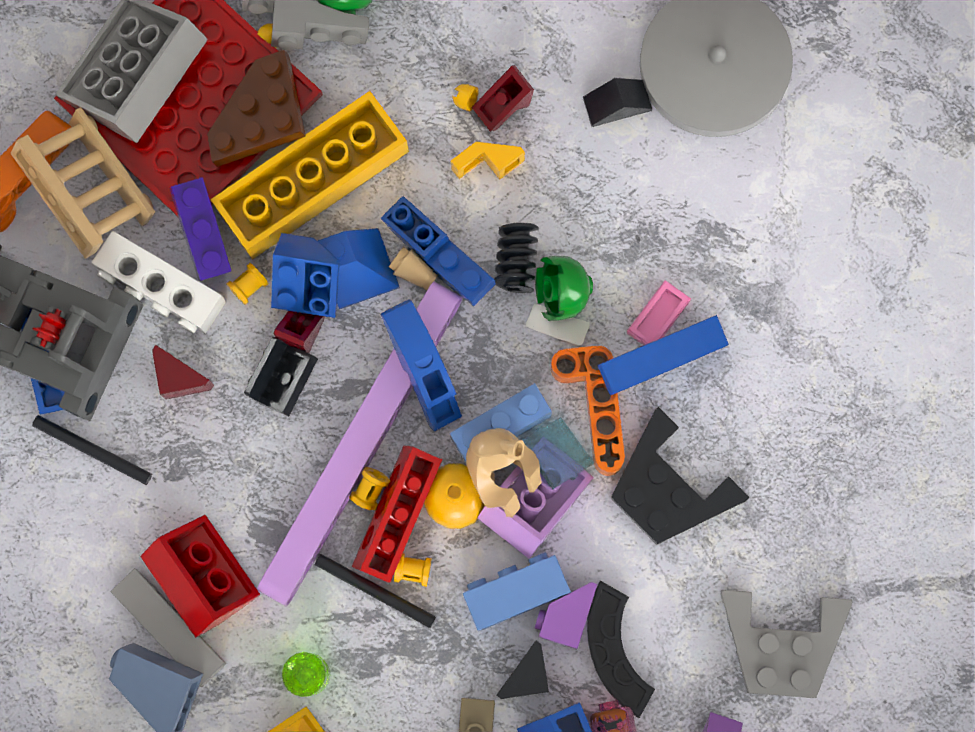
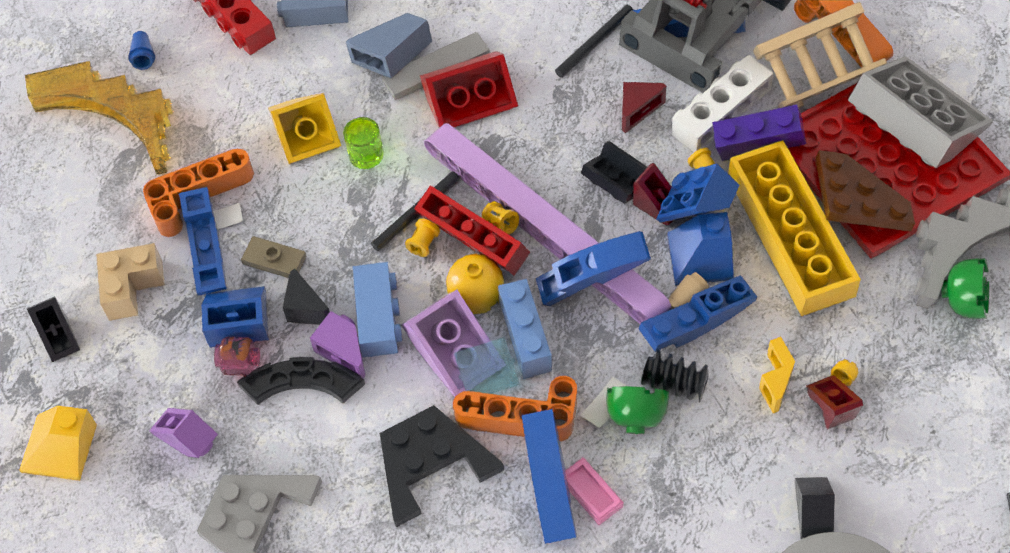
camera: 105 degrees right, 20 degrees down
(494, 451) = (493, 293): tan piece -> none

